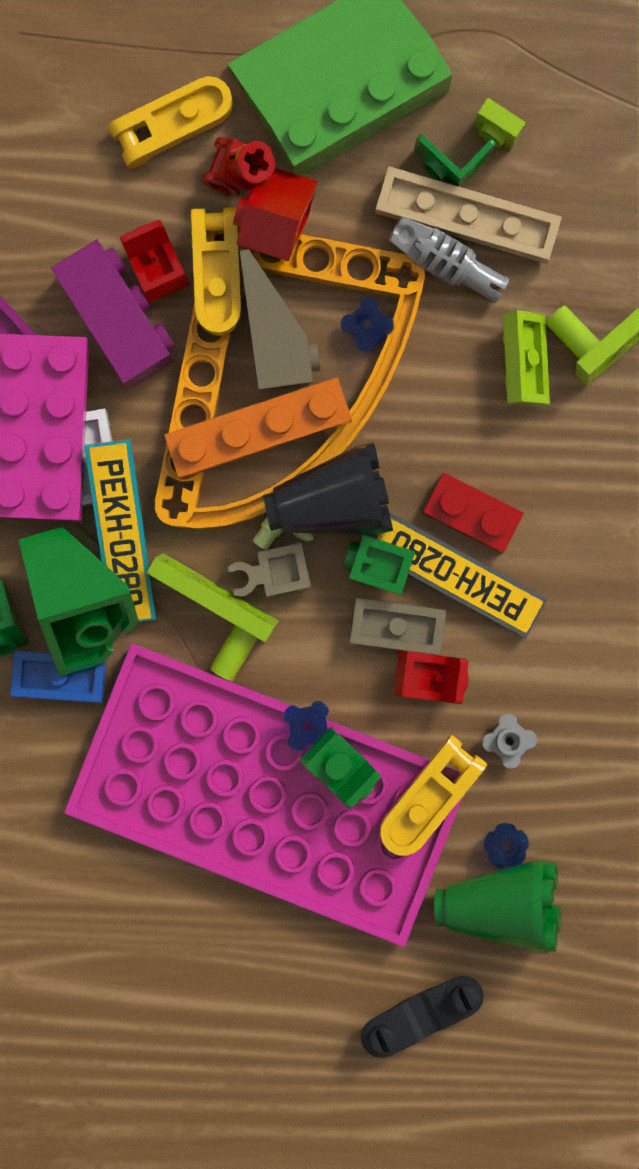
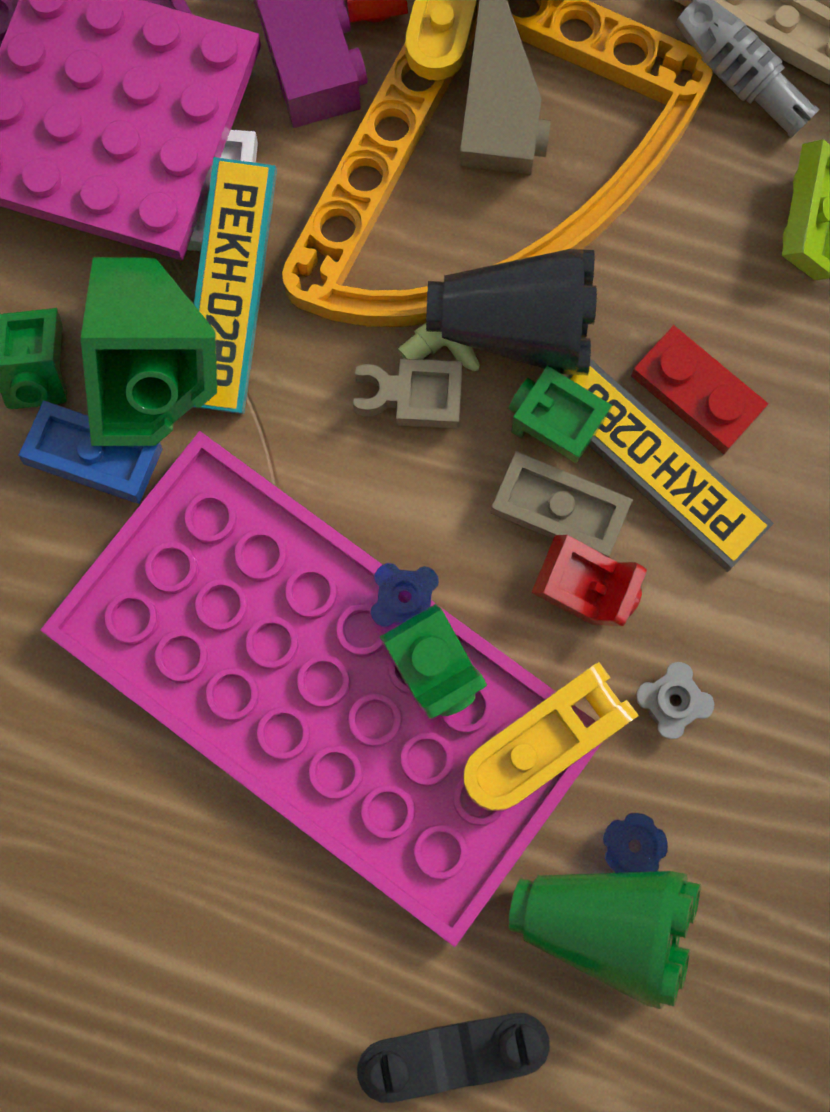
camera: 20 degrees right, 10 degrees down
(248, 620) = (355, 457): lime piece -> none
(258, 428) = (446, 203): orange plate -> none
(380, 325) = (627, 133): clear blue plate -> none

